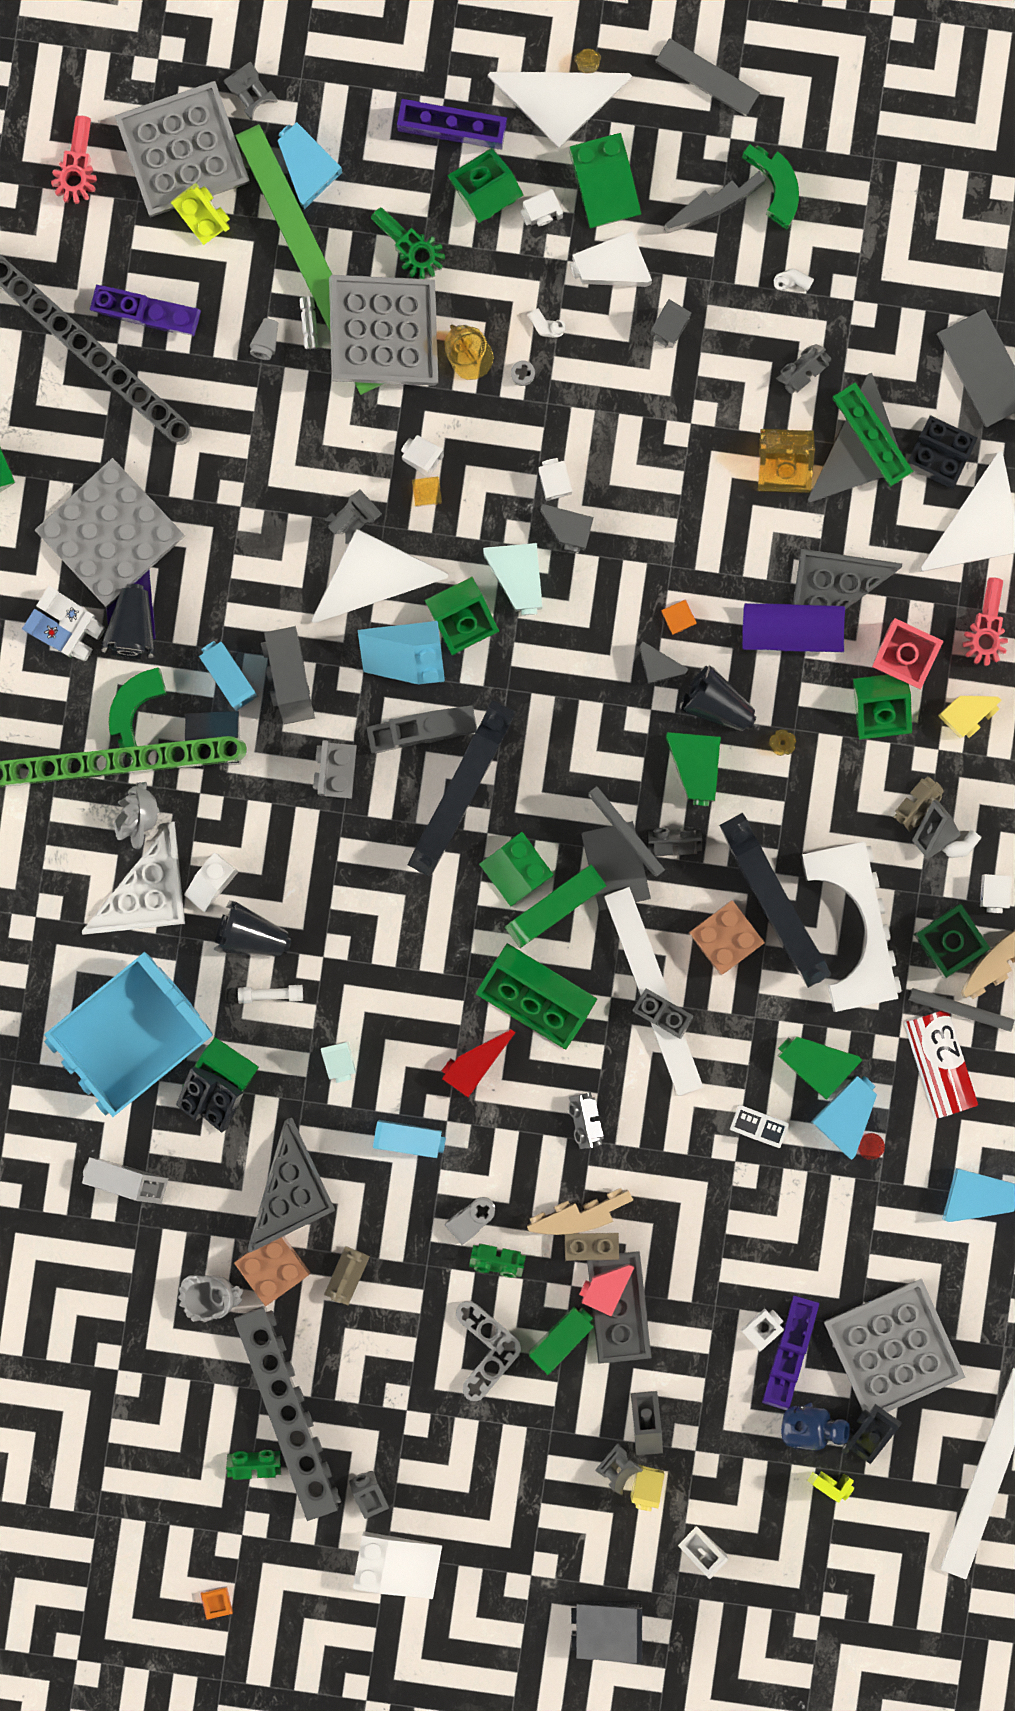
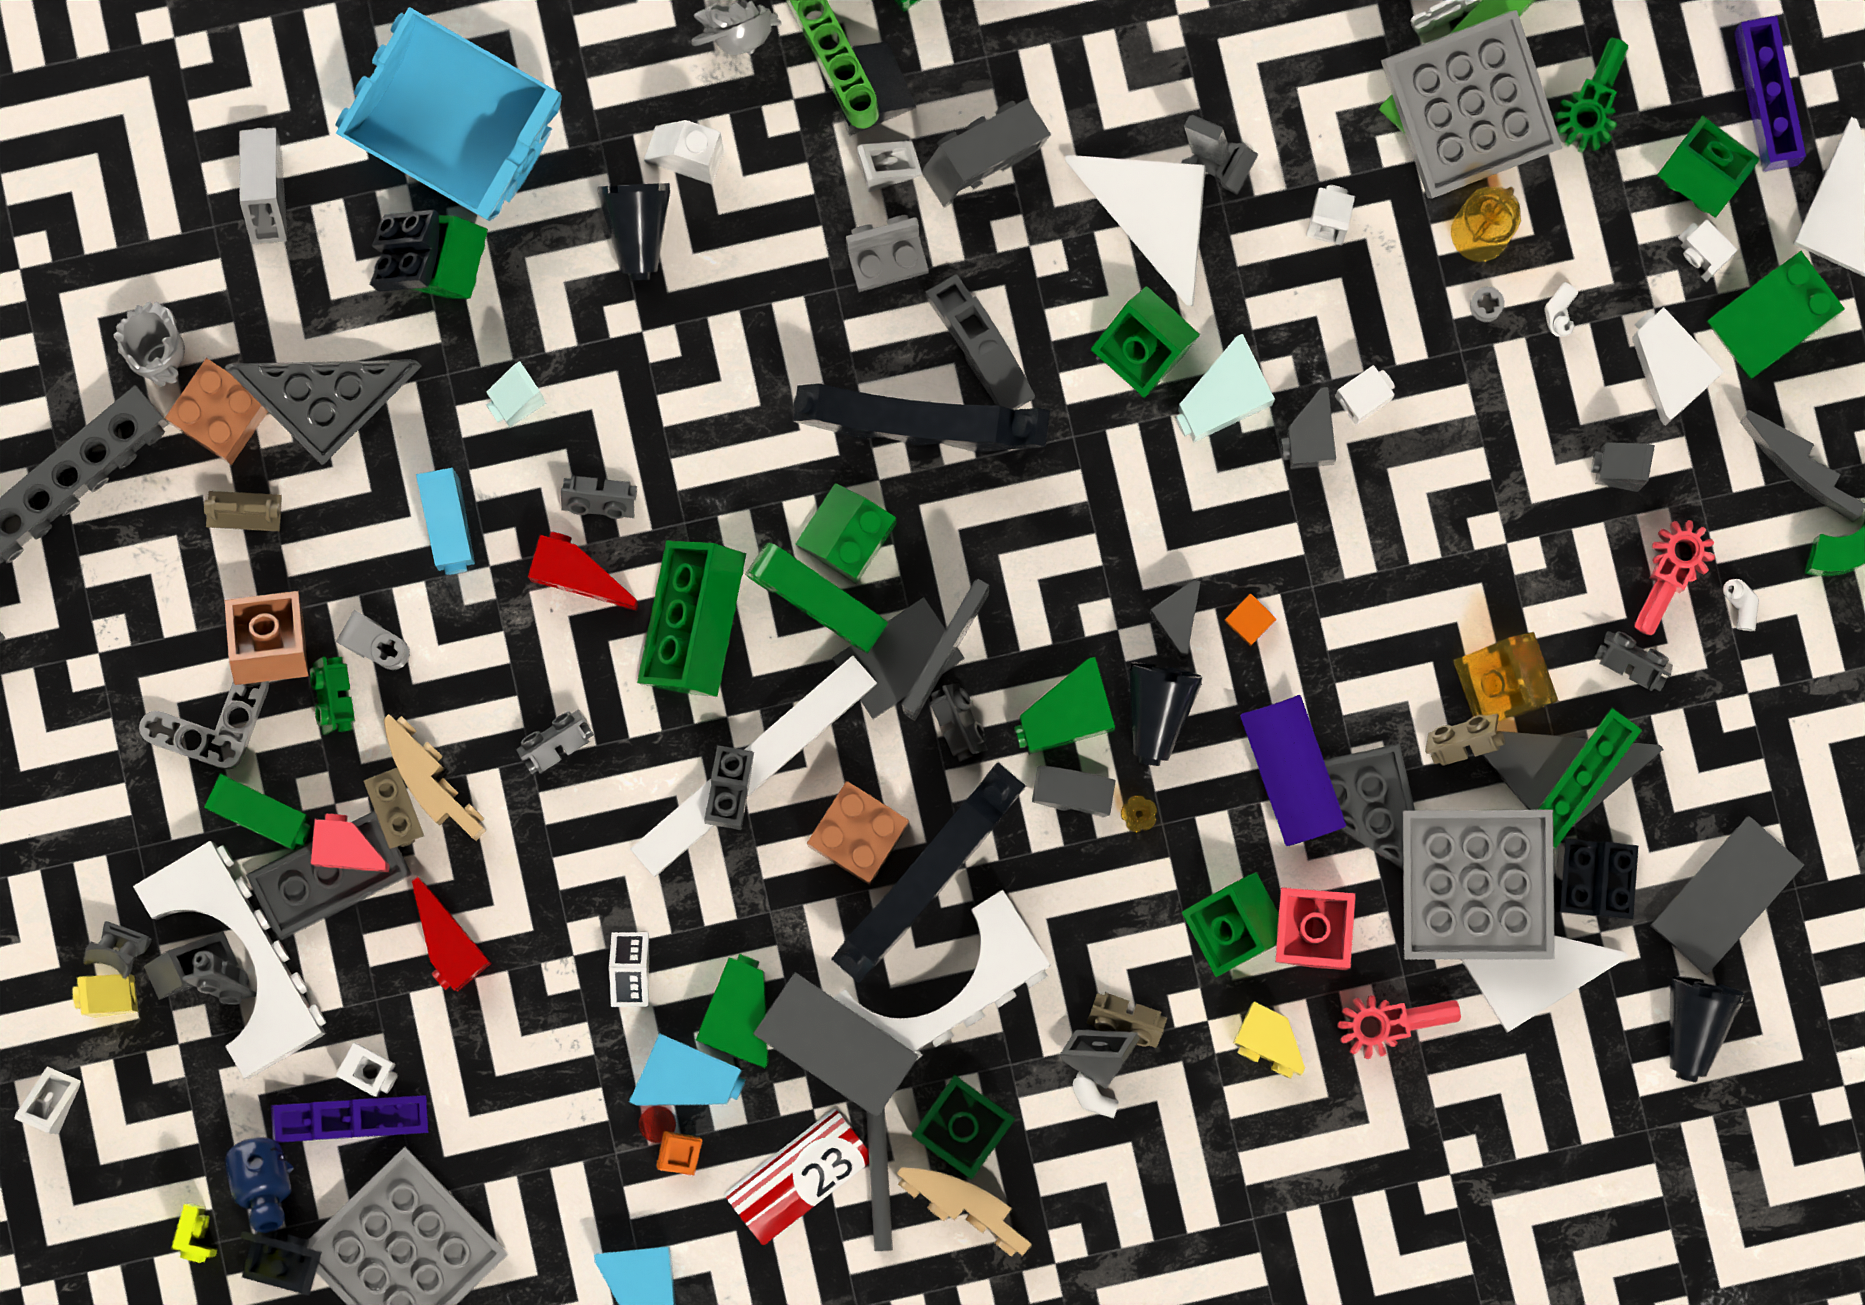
camera: 70 degrees right, 5 degrees down
(147, 894) = (640, 80): white tile -> none
(227, 675) = (954, 75): medium azure slope -> none
(247, 995) = (558, 254): white bar -> none
(271, 744) = (888, 163): none -> white slope
(403, 652) = (1070, 283): medium azure slope -> none
(425, 1040) = (582, 497): none -> dark grey hinge
(426, 491) = (1287, 239): clear yellow plate -> none
(443, 1291) = (266, 638): none -> nougat brick
(598, 1391) = (281, 1015): none -> white arch
(665, 1406) = (219, 979): none -> dark grey hinge
(699, 1242) = (448, 945): none -> red slope
(751, 781) = (1073, 790): none -> dark grey slope
(754, 320) = (1671, 572): none -> coral gear
(813, 514) = (1449, 742): none -> dark tan hinge
(866, 1006) = (836, 1045): none -> dark grey tile
(896, 1138) = (679, 1153): none -> orange tile
(918, 532) = (1478, 884): none -> light grey plate
(995, 892) = (1048, 1162): white brick -> none

